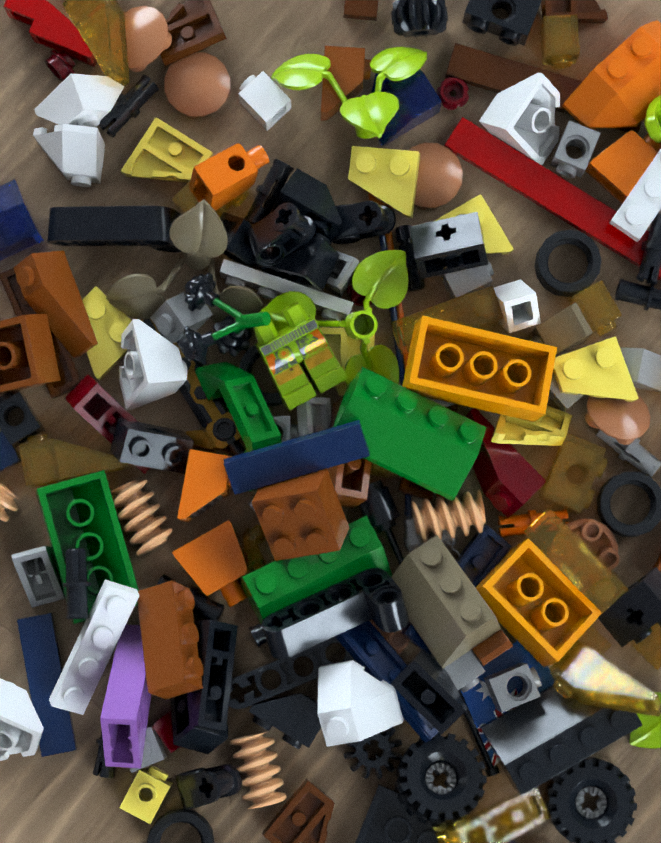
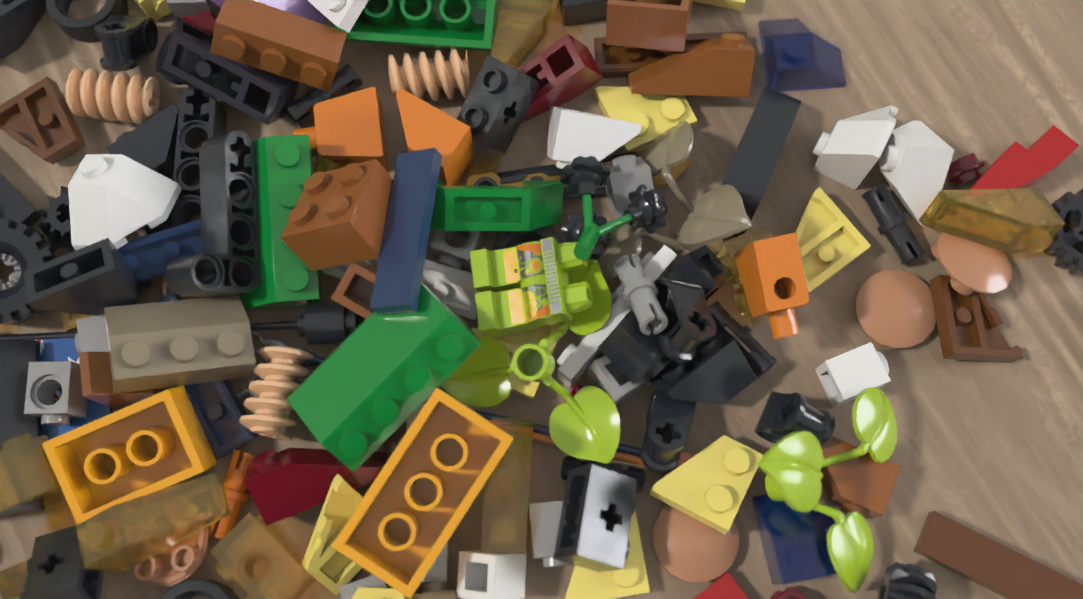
camera: 115 degrees right, 10 degrees down
(274, 269) = (640, 294): none -> light grey pin
(319, 130) = (790, 414): none -> black piece

